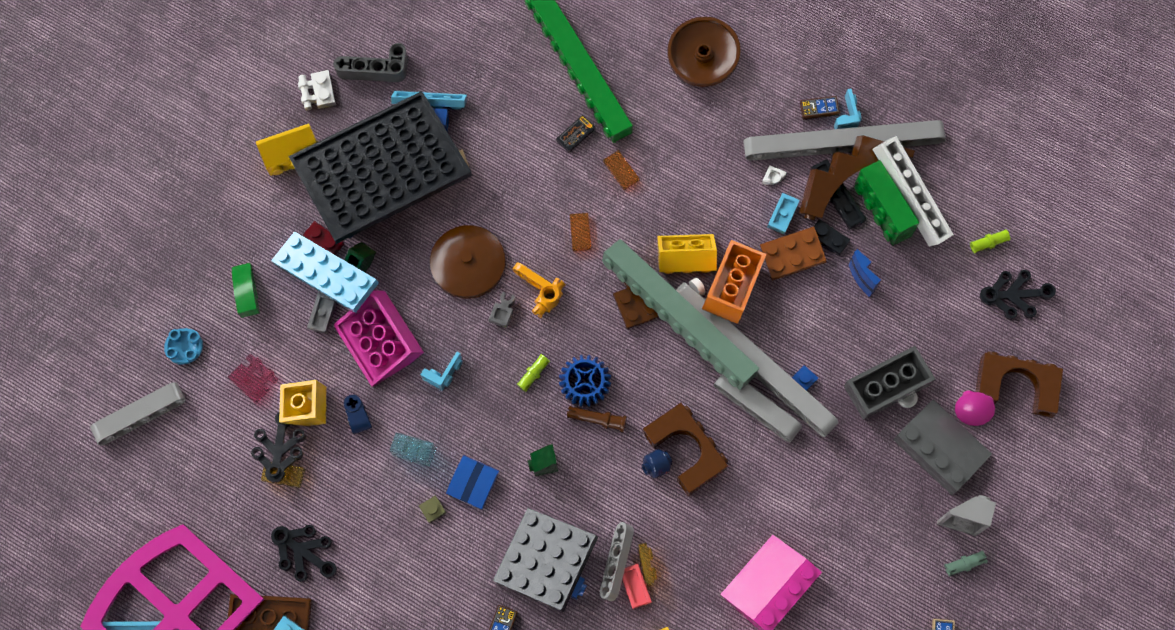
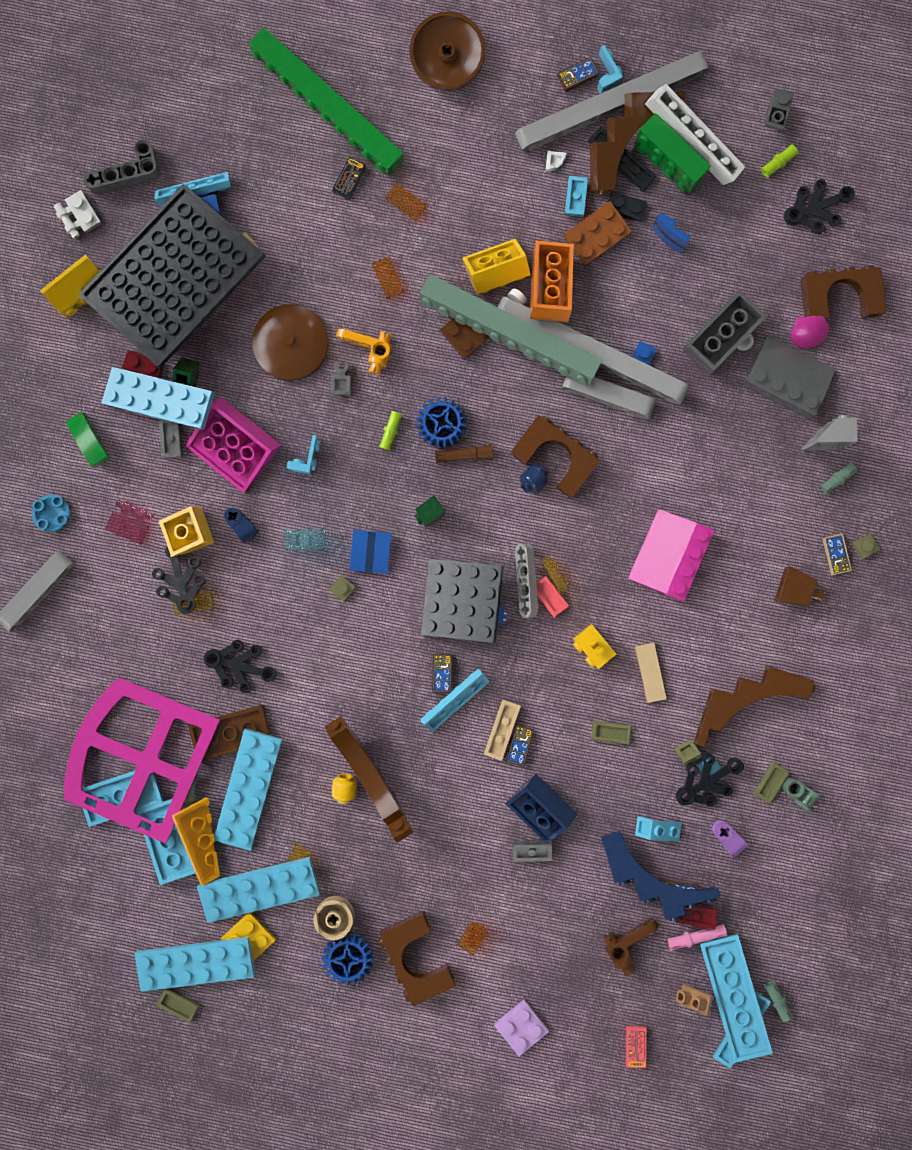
camera: 20 degrees left, 15 degrees up
(1001, 193) = (778, 109): none -> dark grey slope

